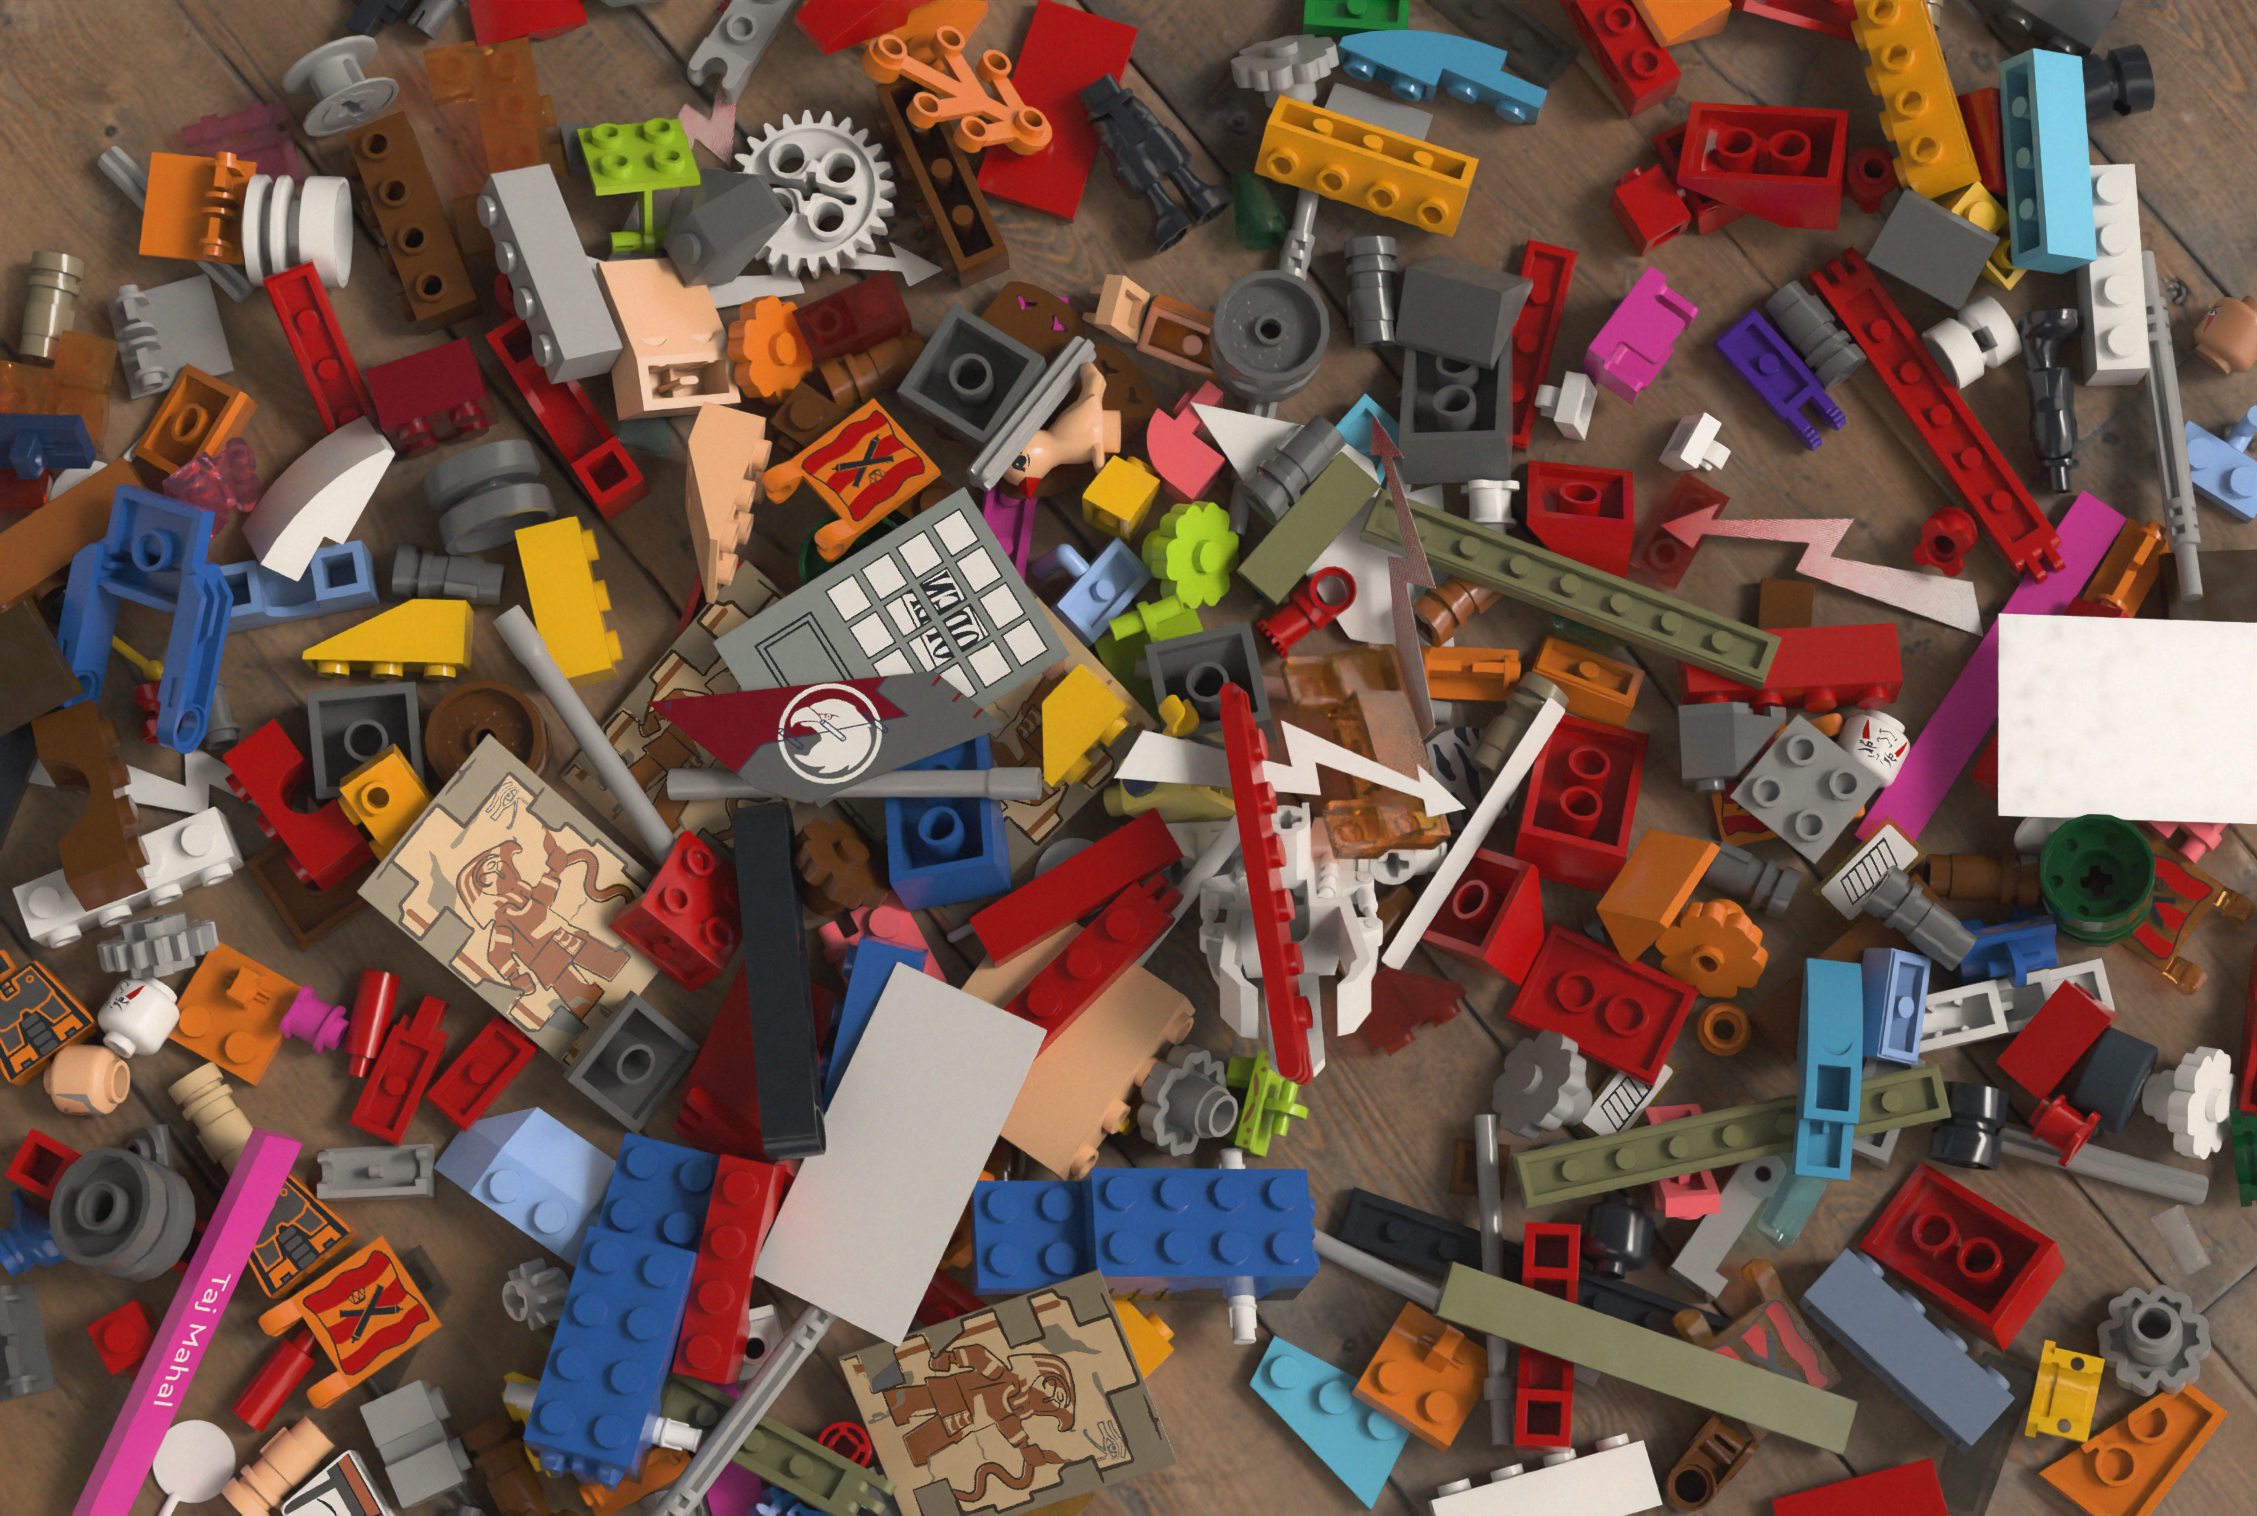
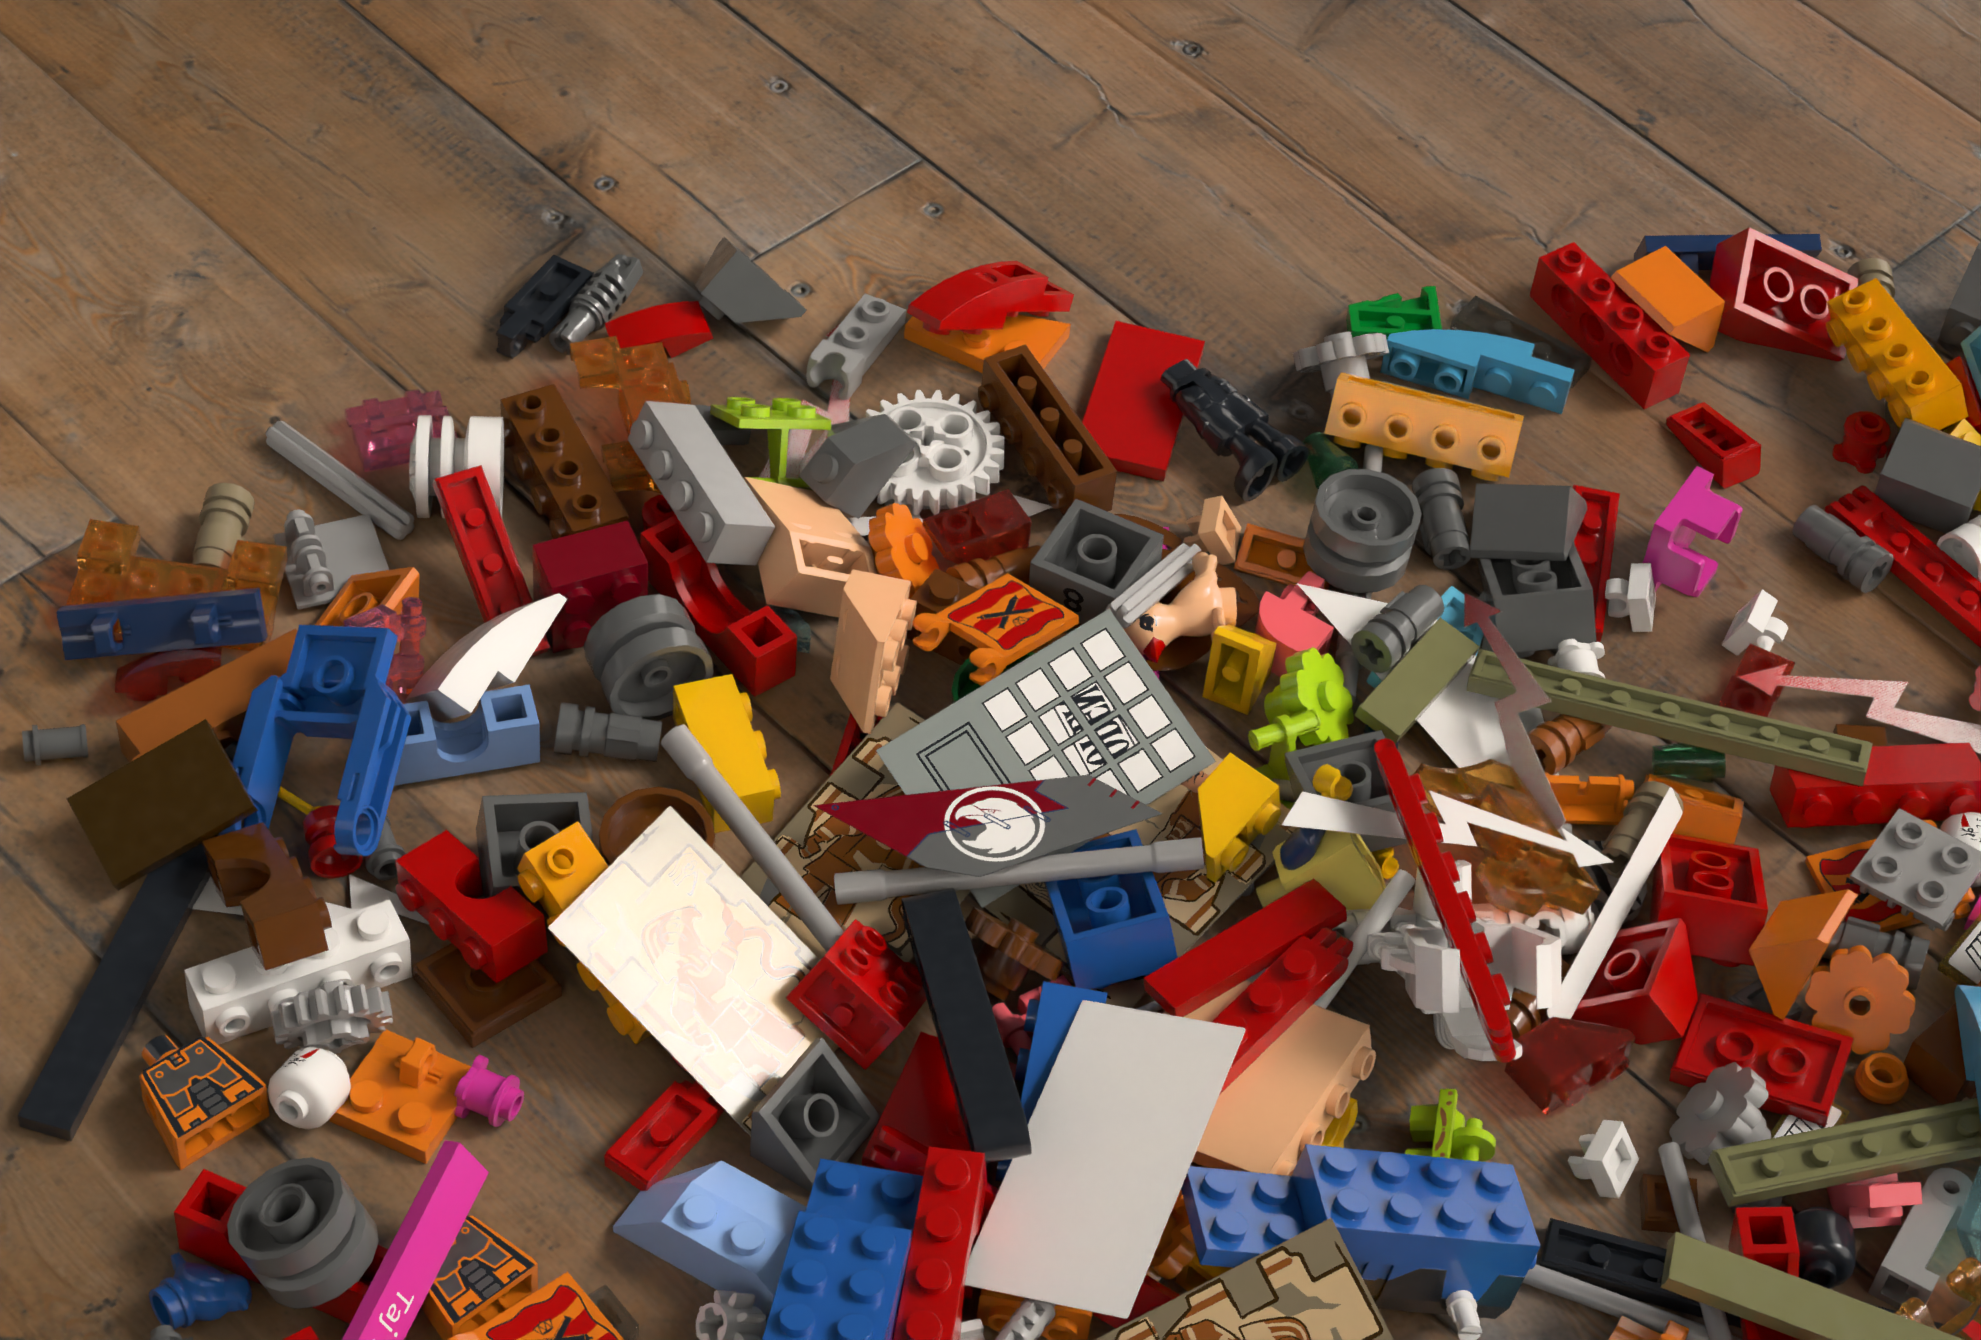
camera: 10 degrees left, 30 degrees down
(87, 1080) = (252, 1145): light nougat head -> none
(195, 207) = (364, 453): orange hinge -> none
(208, 1103) = (381, 1167): tan axle -> none
(340, 86) = (493, 363): light grey piece -> none
(370, 1020) = (545, 1094): red cylinder -> none
(377, 1174) = (561, 1232): light grey hinge -> none
(403, 1073) = (579, 1140): red hinge -> none
(410, 638) = (578, 766): yellow slope -> none
(1014, 124) = (1043, 357): orange plant -> none
(1098, 588) = (1224, 728): light blue plate -> none
(1186, 1101) = (1377, 1121): light grey plant -> none
(1304, 612) = (1429, 747): red connector -> none
(1422, 1124) = (1607, 1159): none -> white tile
(1582, 513) = (1668, 671): red slope -> none
(1650, 208) = (1673, 454): red brick -> none
(1722, 742) = (1830, 829): dark grey slope -> none
(1769, 161) = (1785, 417): red slope -> none
(1777, 377) = (1819, 581): dark purple hinge -> none

